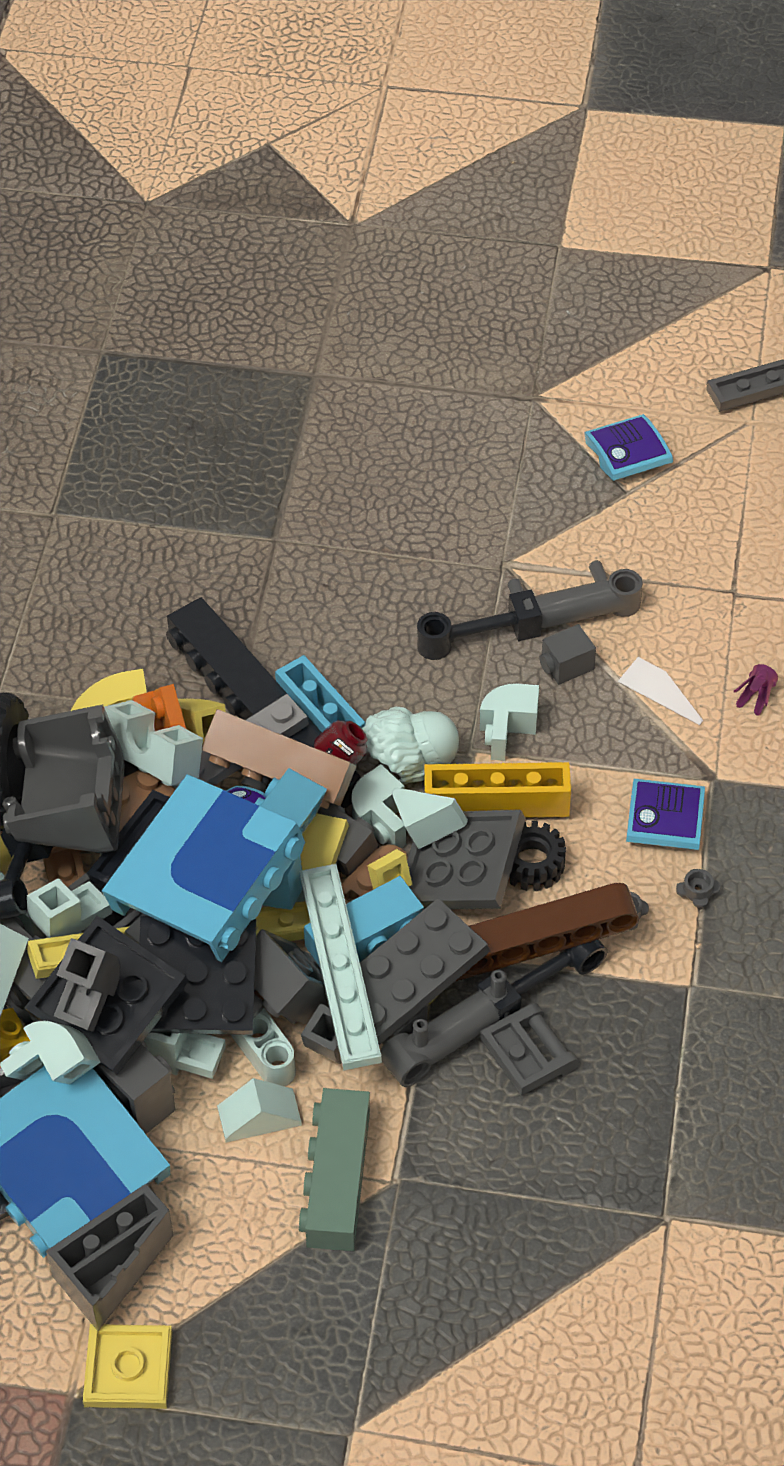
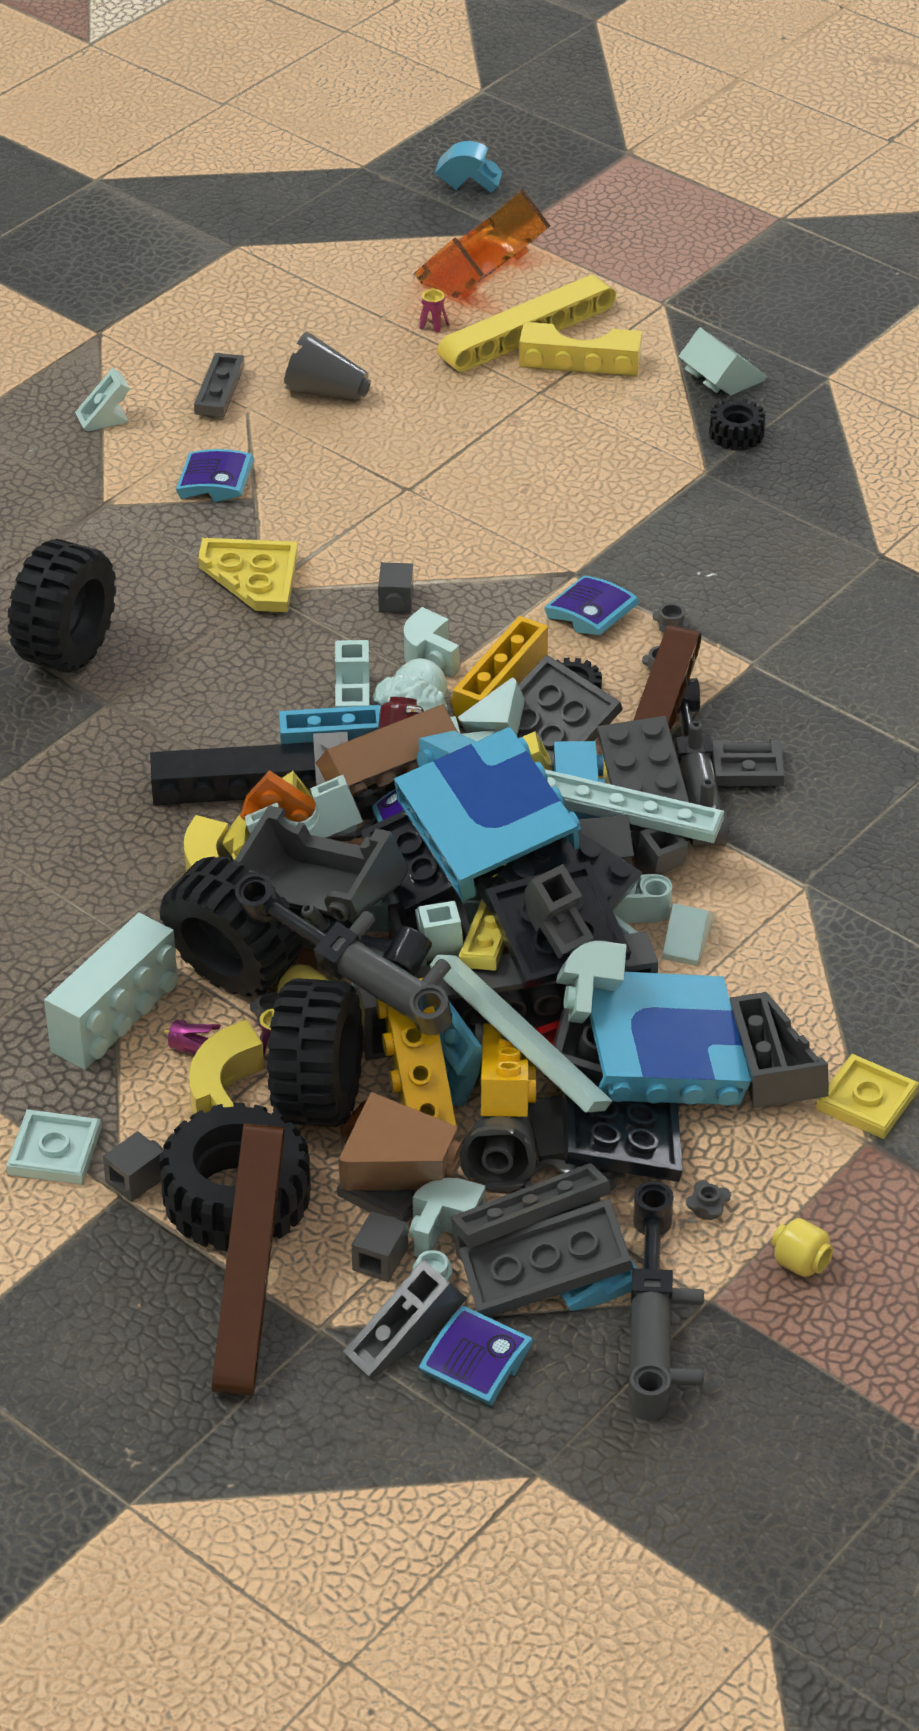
camera: 60 degrees left, 10 degrees down
(314, 408) = (62, 605): none -> black tyre
(337, 1169) = (780, 902): sand green brick -> none
(418, 683) = (352, 673): none -> light aqua arch
(516, 542) = (252, 570): none -> light yellow plate
(531, 613) = (334, 588): piece -> none
(657, 325) = (102, 405): none -> light aqua slope
(659, 687) = (459, 564): white sticker -> none
(760, 679) = (512, 506): flat silver piece -> none

